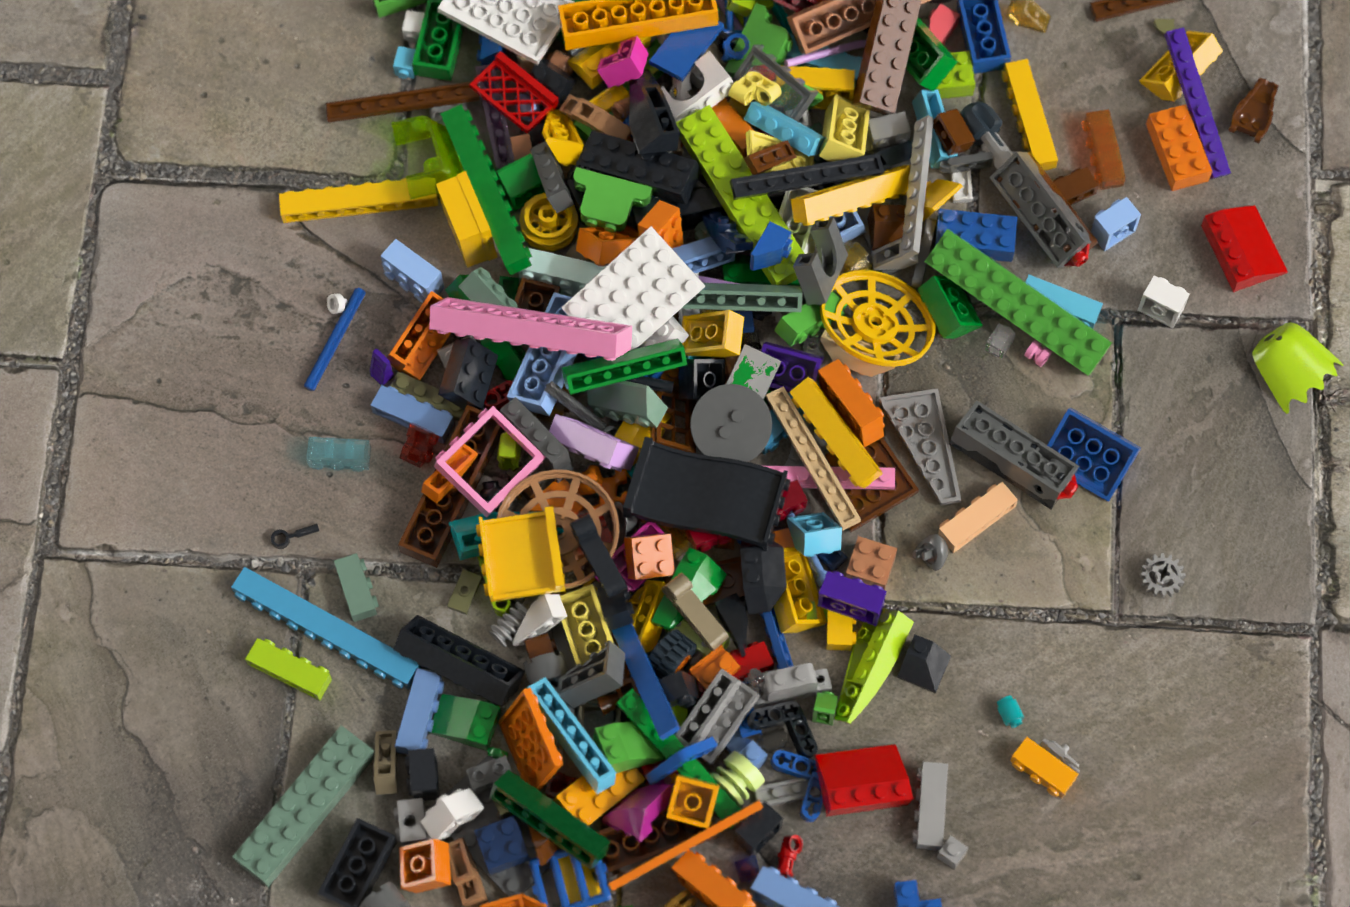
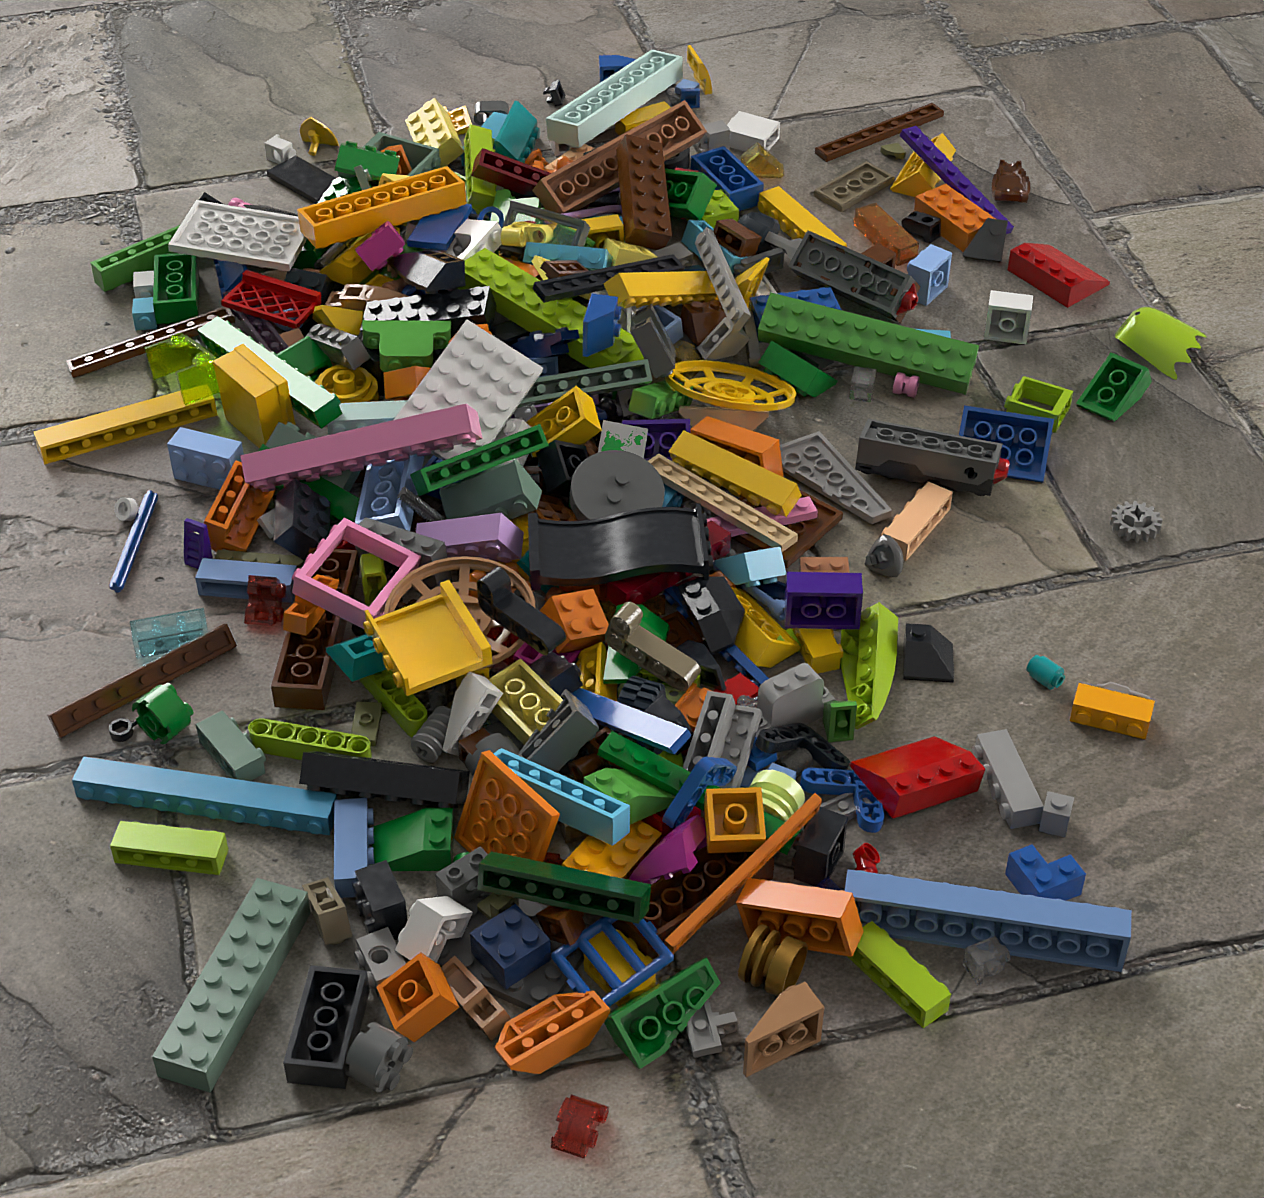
camera: 20 degrees left, 25 degrees down
(307, 496) = (141, 680): none -> reddish brown tile
(311, 541) = (162, 713): none -> green brick
(410, 594) = (293, 739): none -> lime beam
(1106, 68) = (854, 186): none -> dark tan tile
(1144, 147) = (923, 225): none -> black leg
(1168, 413) = (1041, 392): none -> lime window
(1193, 192) = (988, 241): none -> dark grey wing
(1219, 416) = (1115, 387): none -> green slope

